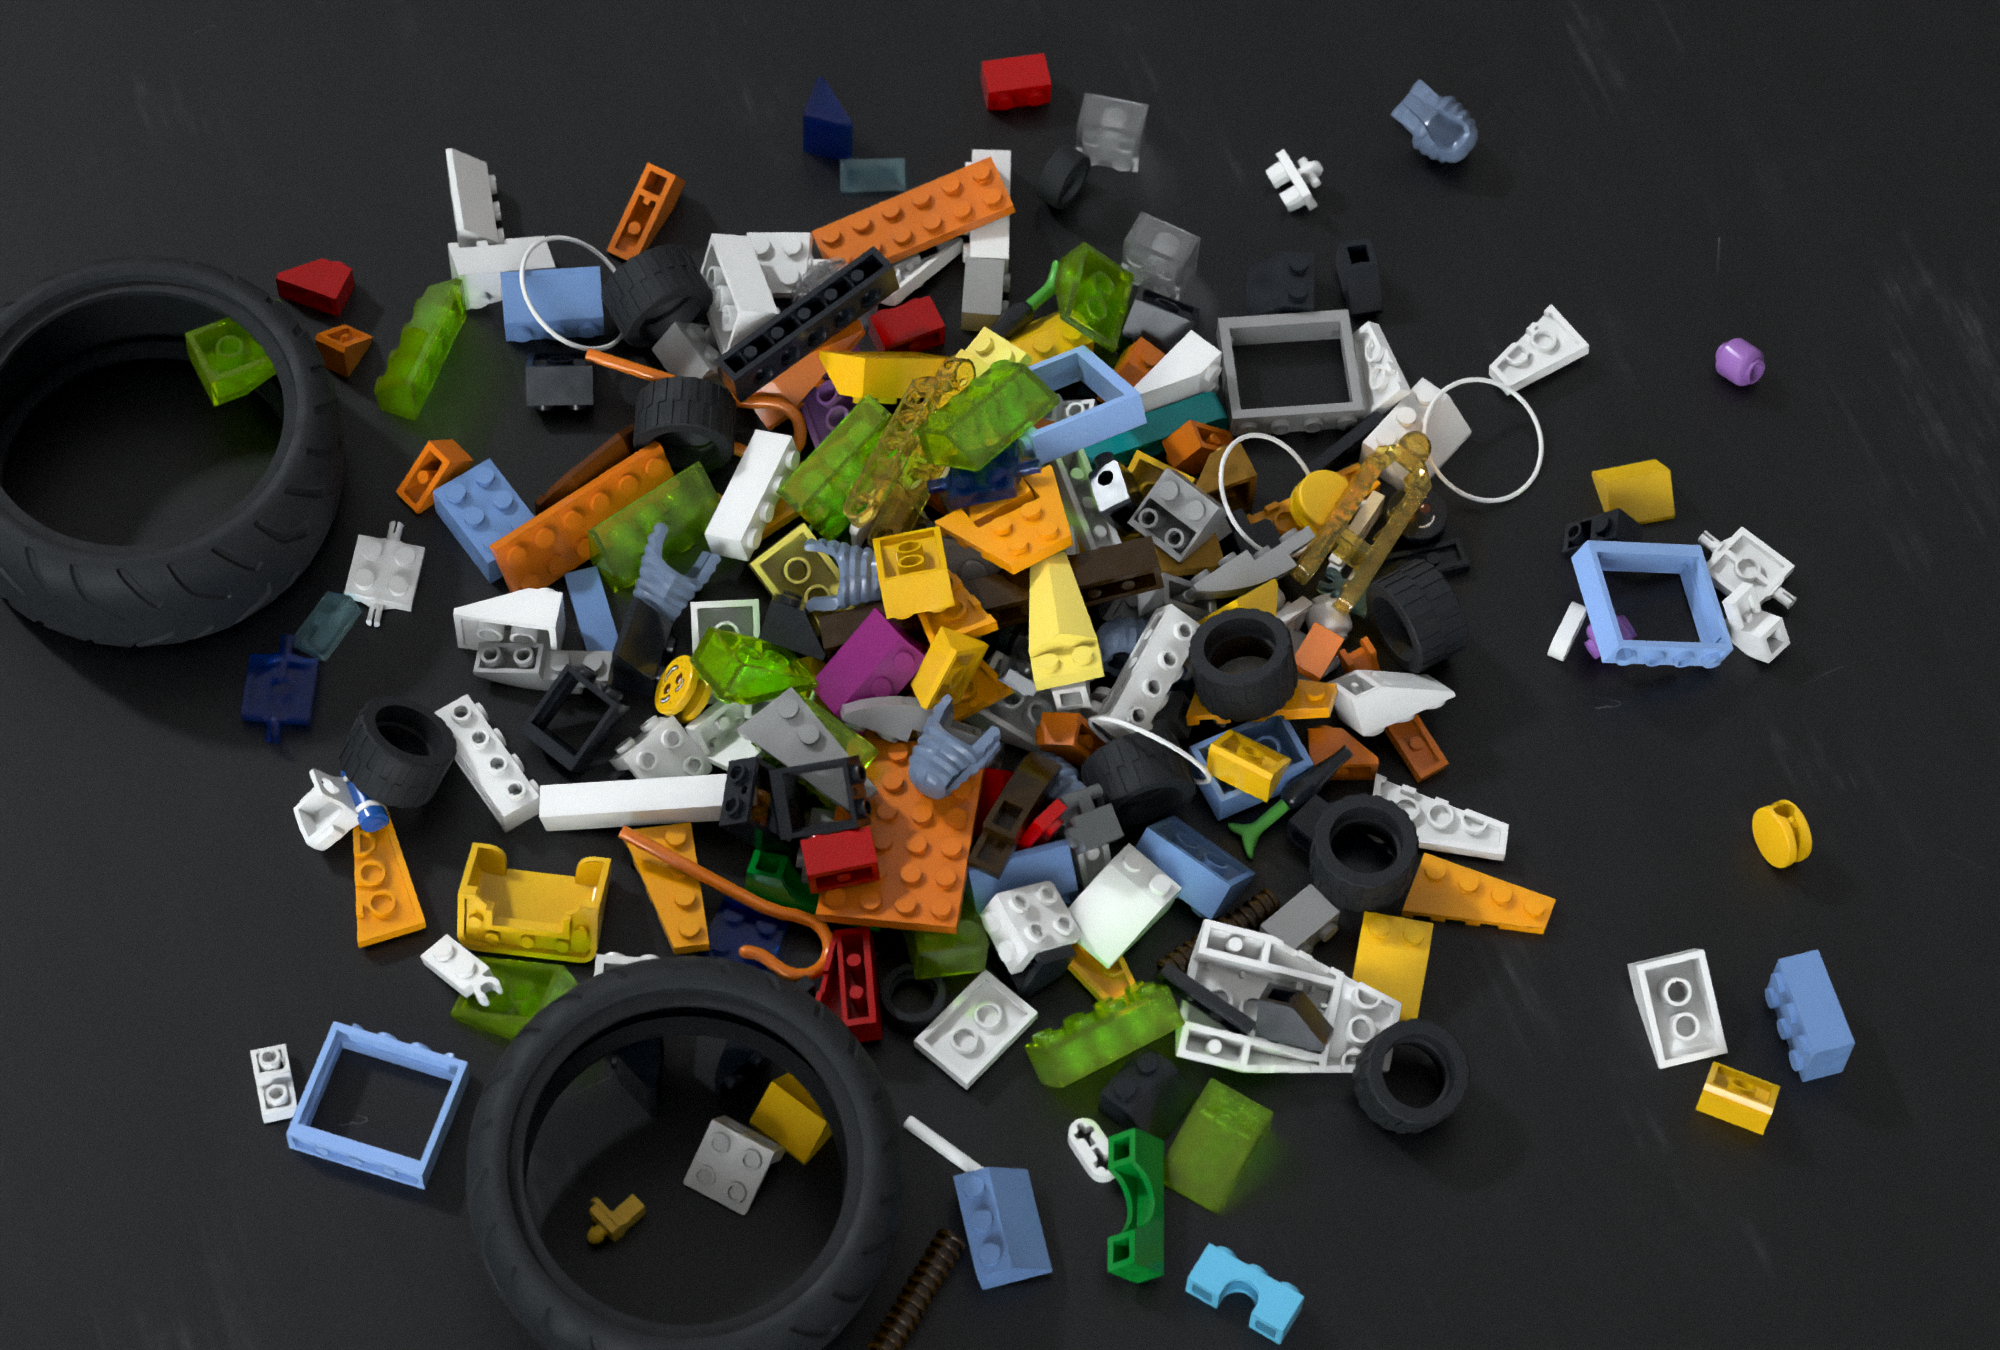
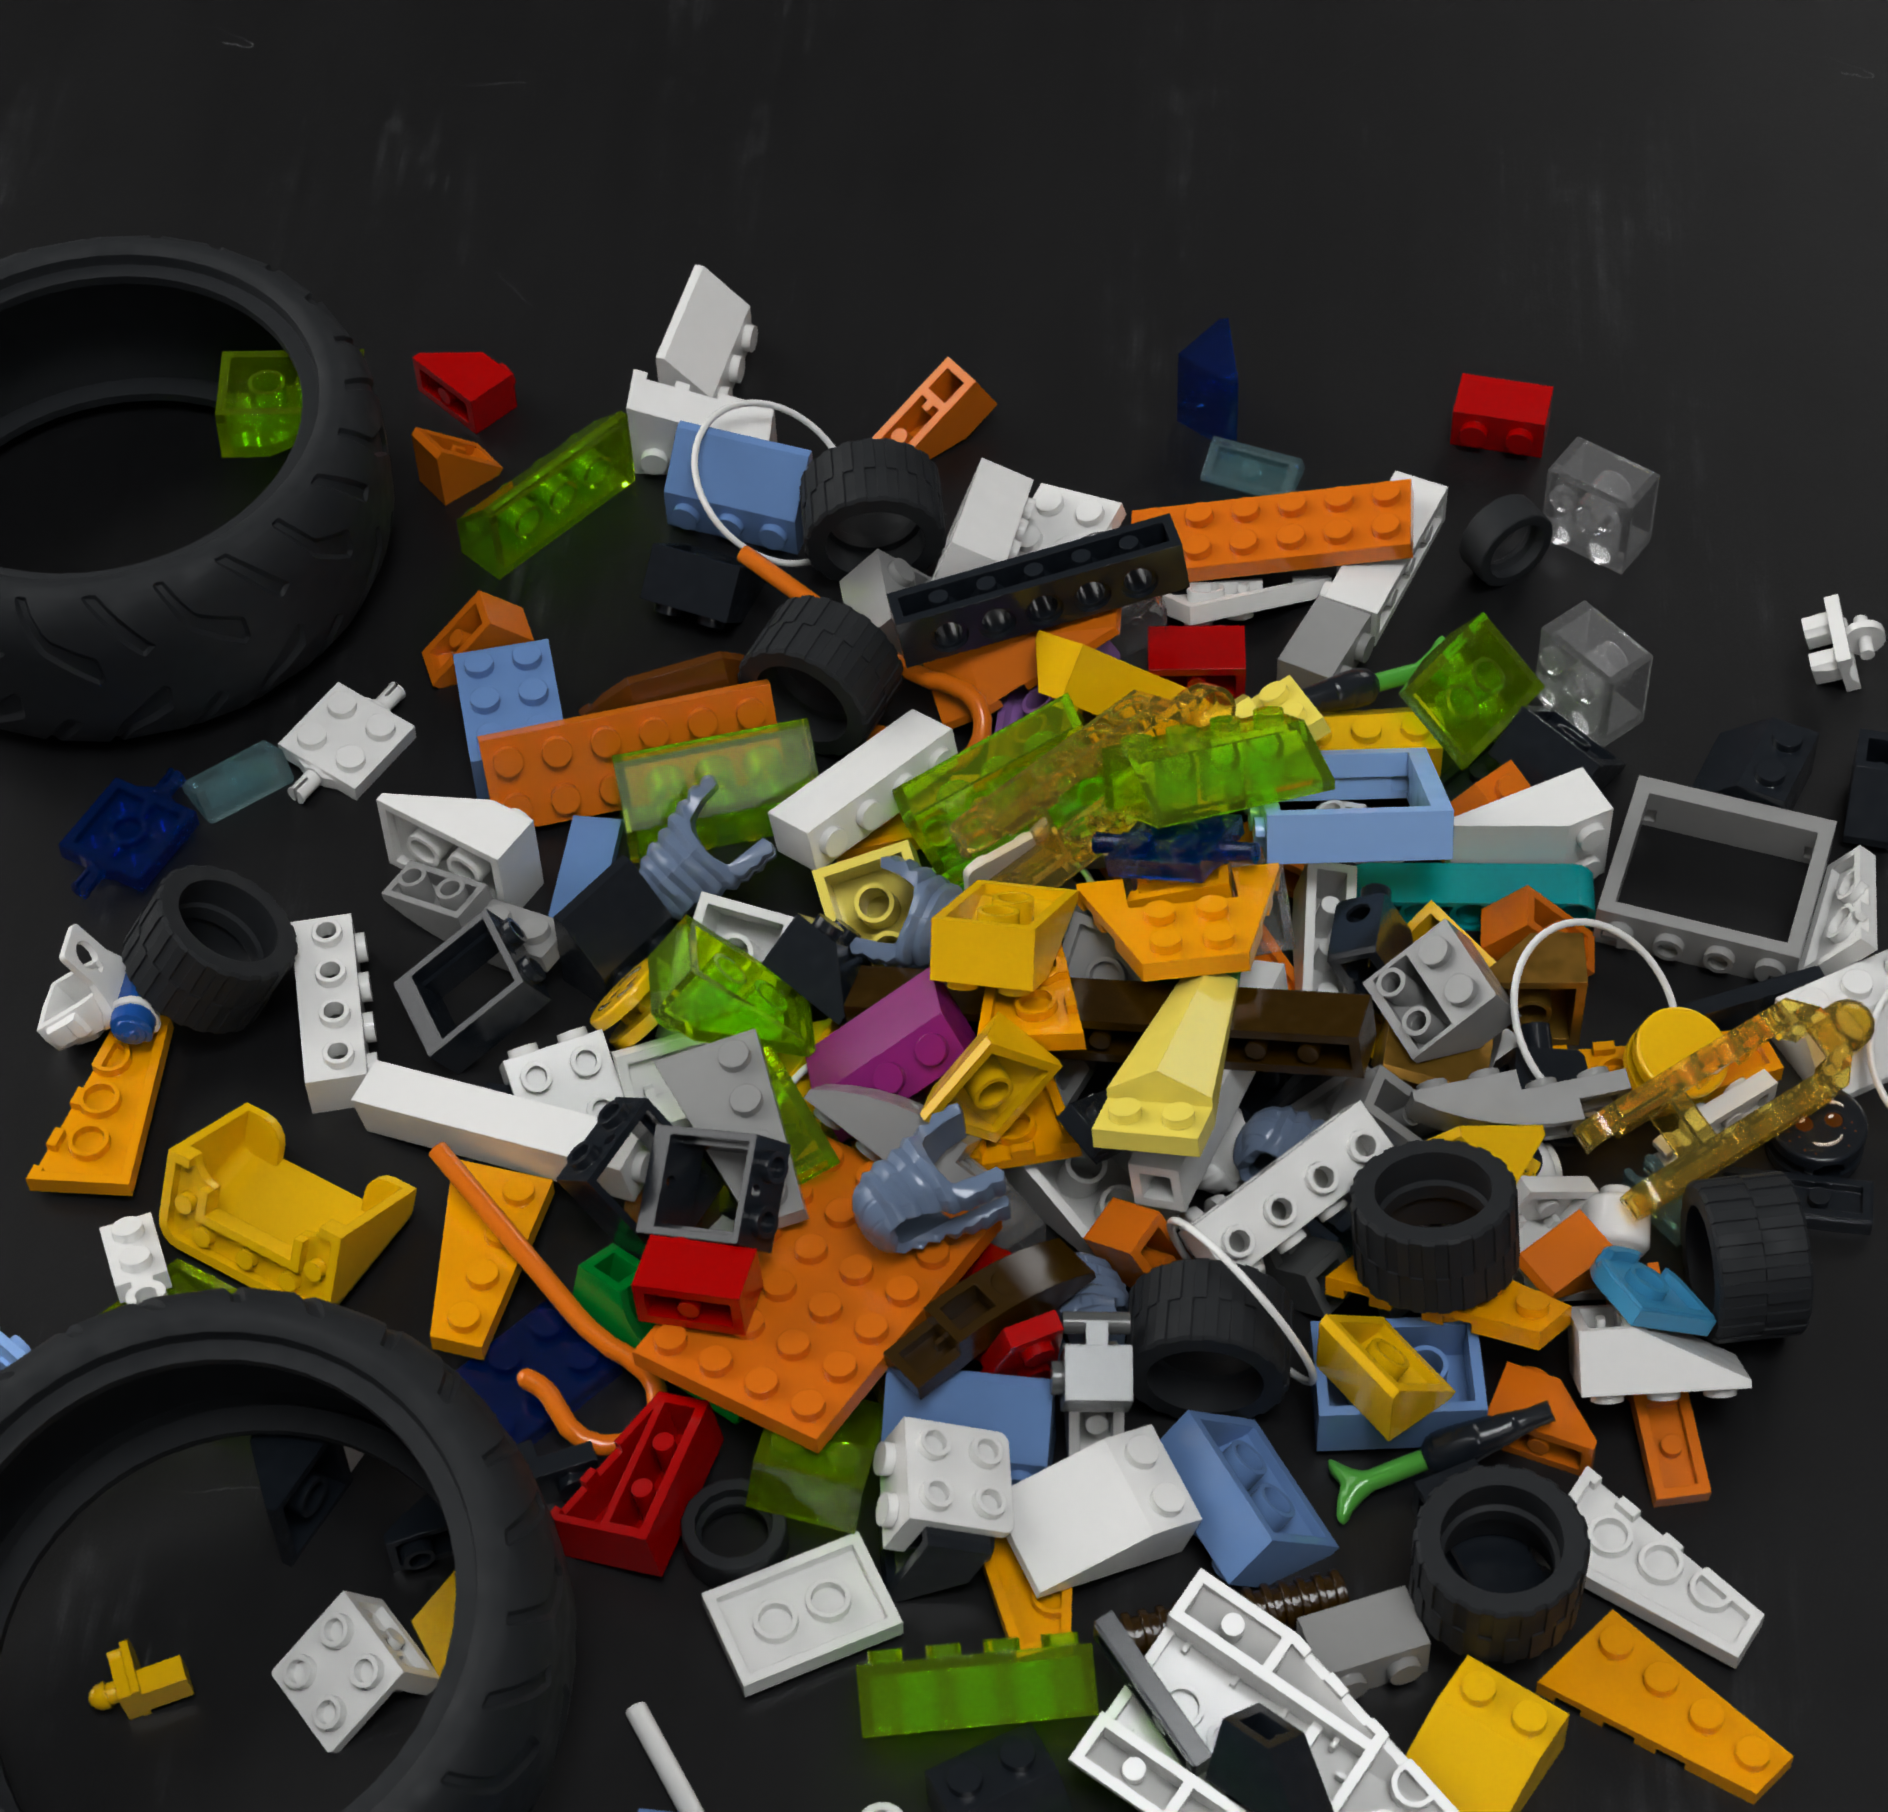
camera: 30 degrees right, 10 degrees down
(1375, 661) = (1649, 1297): none -> dark azure tile

